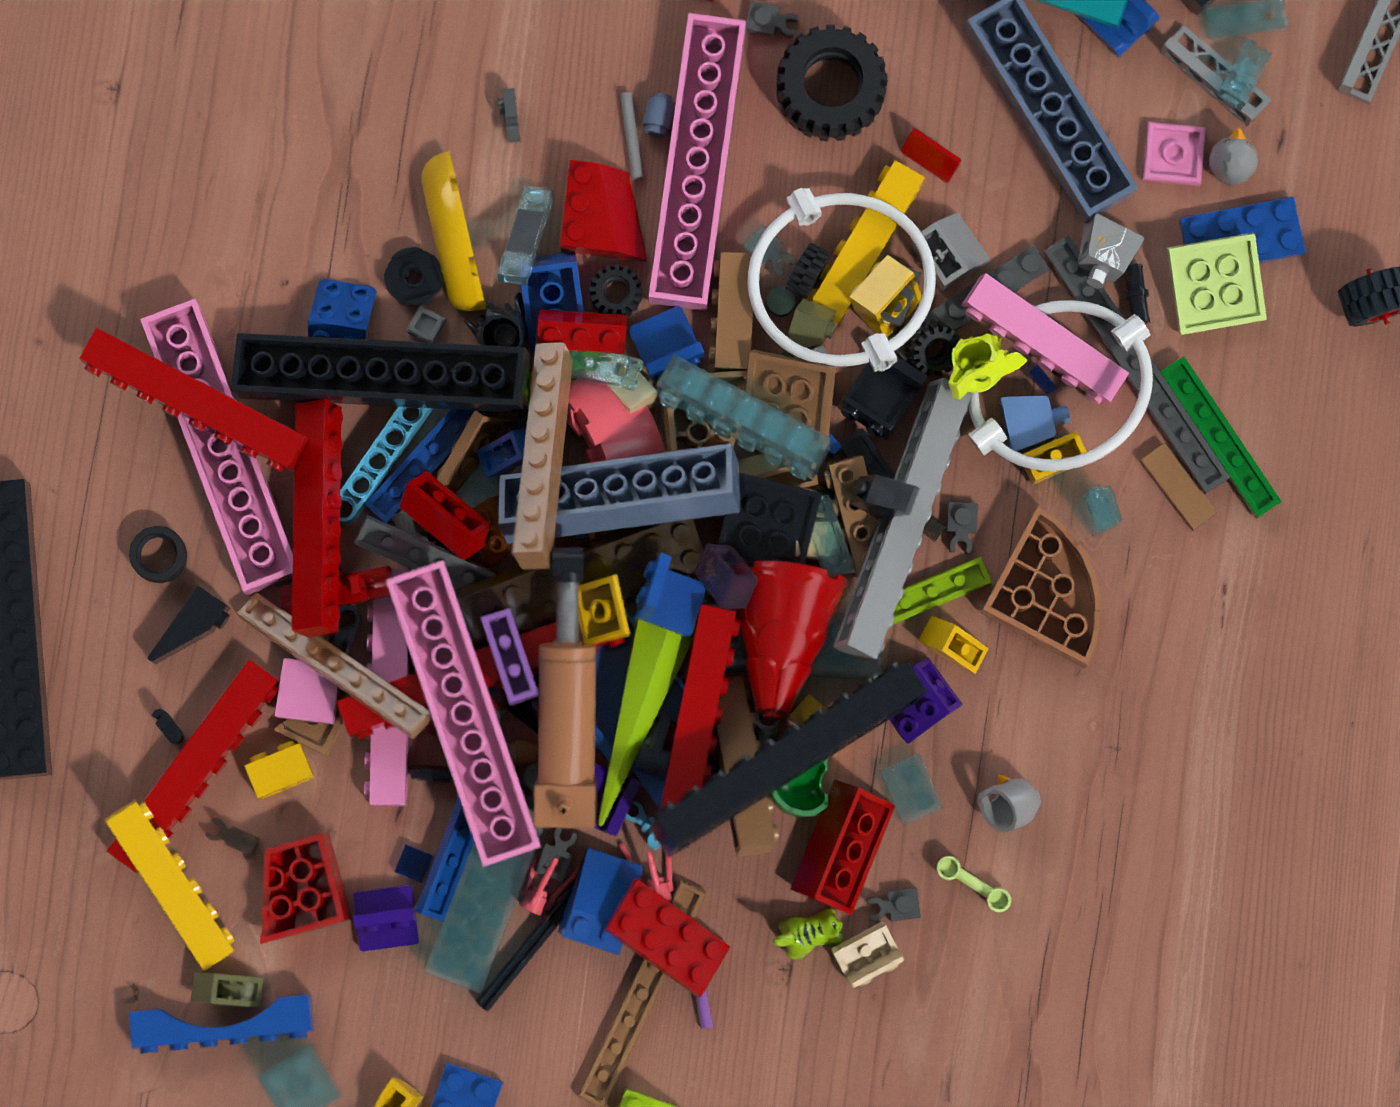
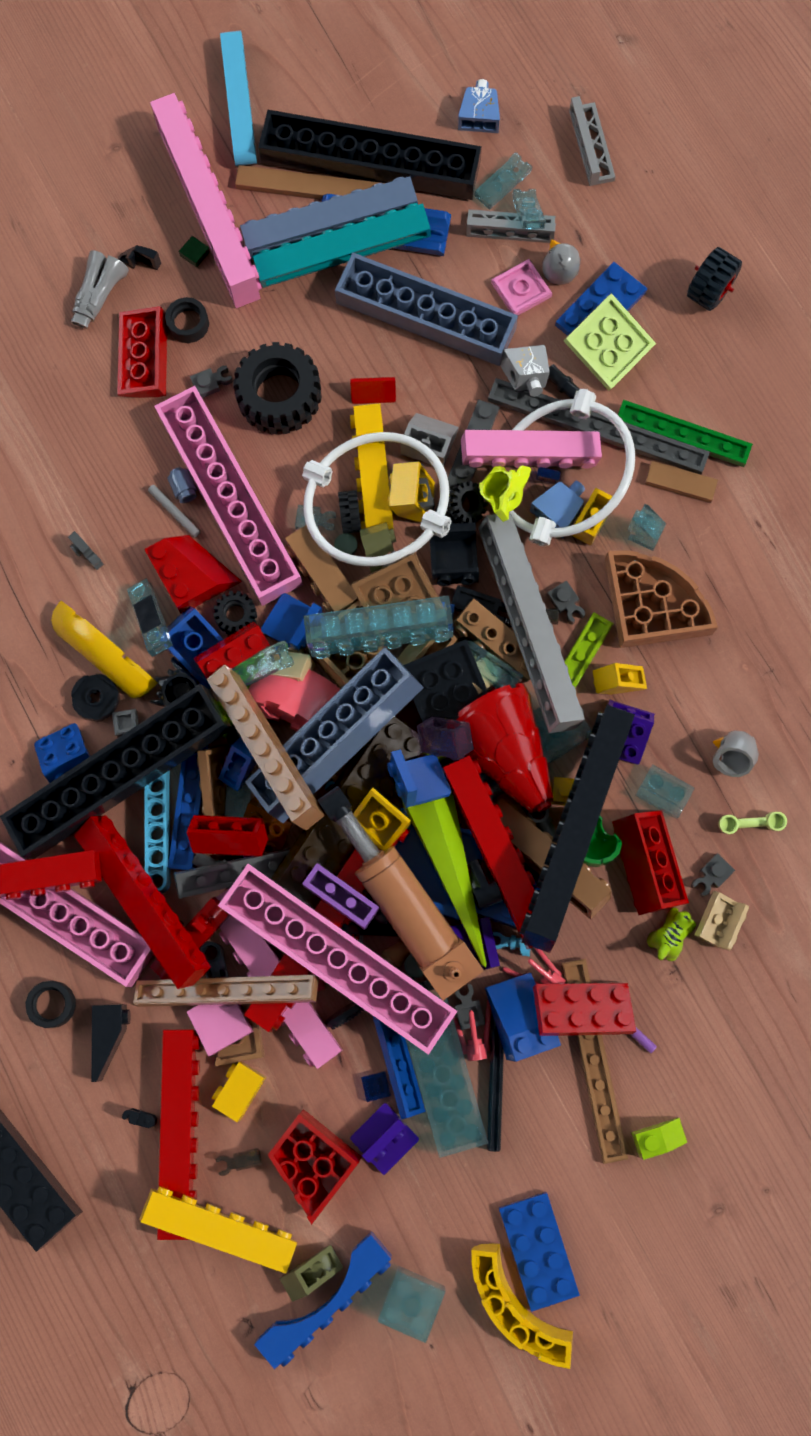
camera: 30 degrees left, 5 degrees down
(883, 496) = (508, 612): black slope -> none

